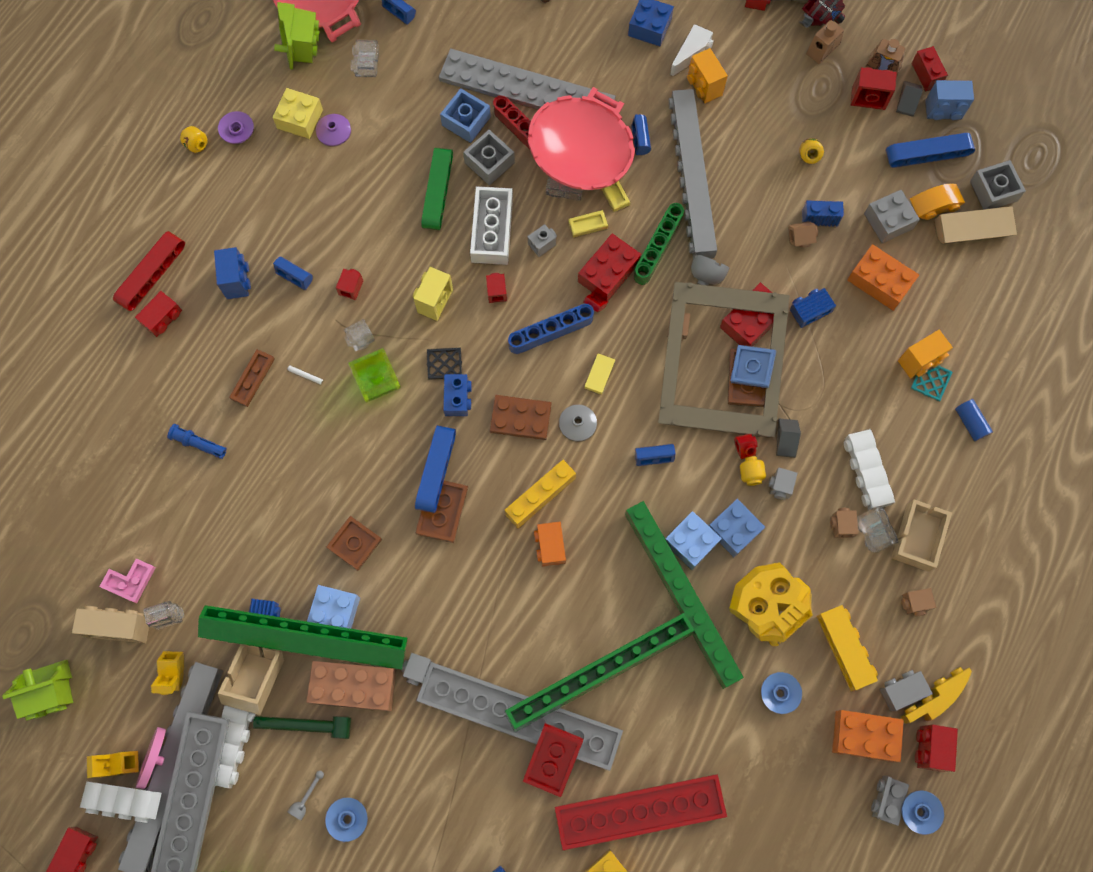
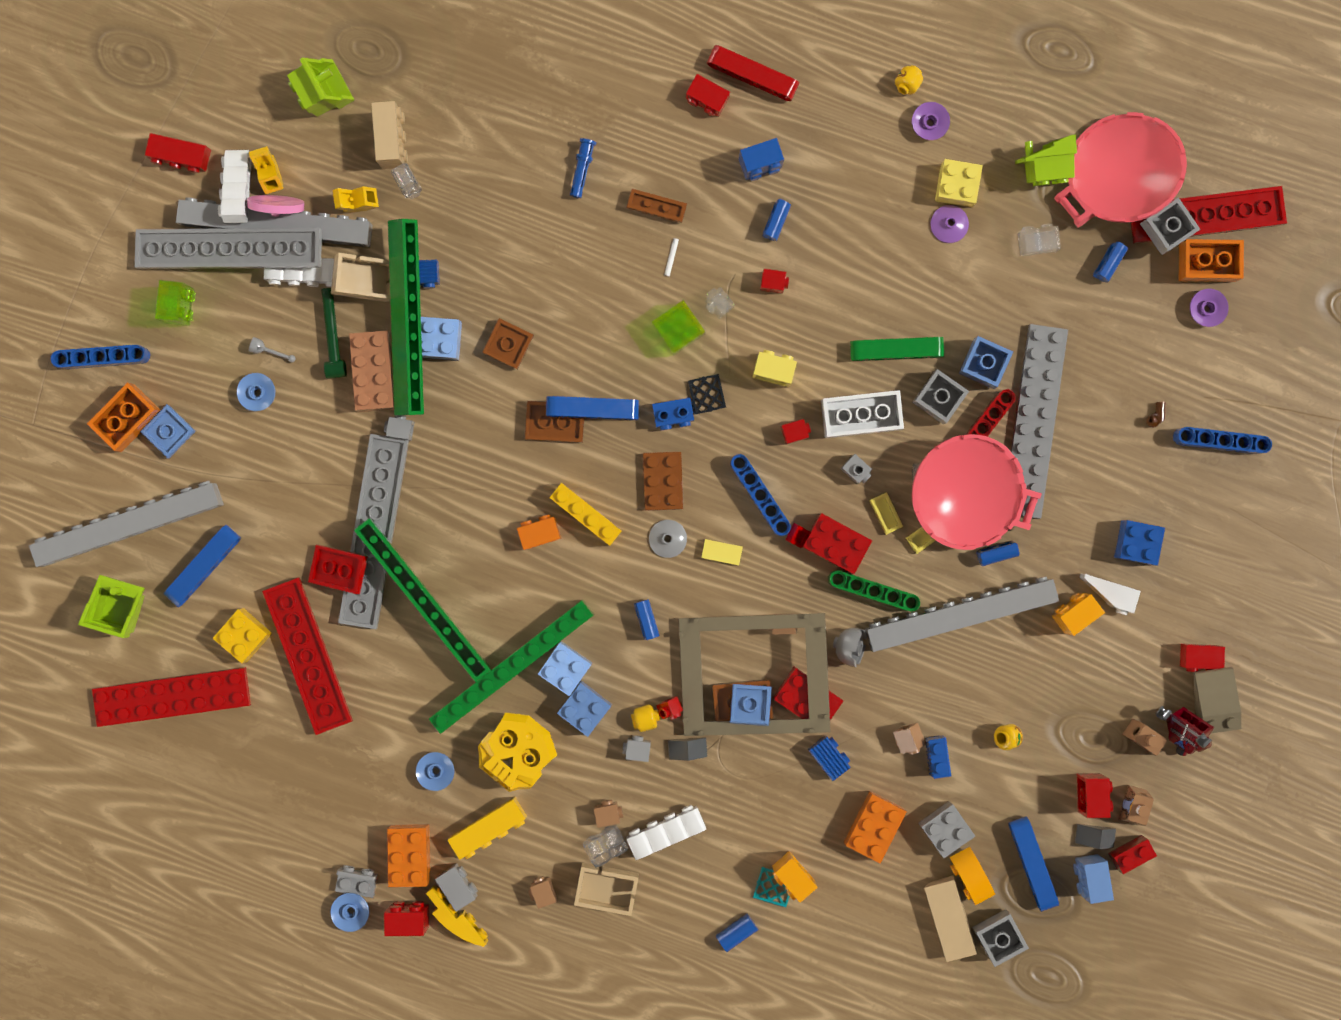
camera: 80 degrees right, 15 degrees up
(129, 586) = (431, 141): bright pink plate -> none

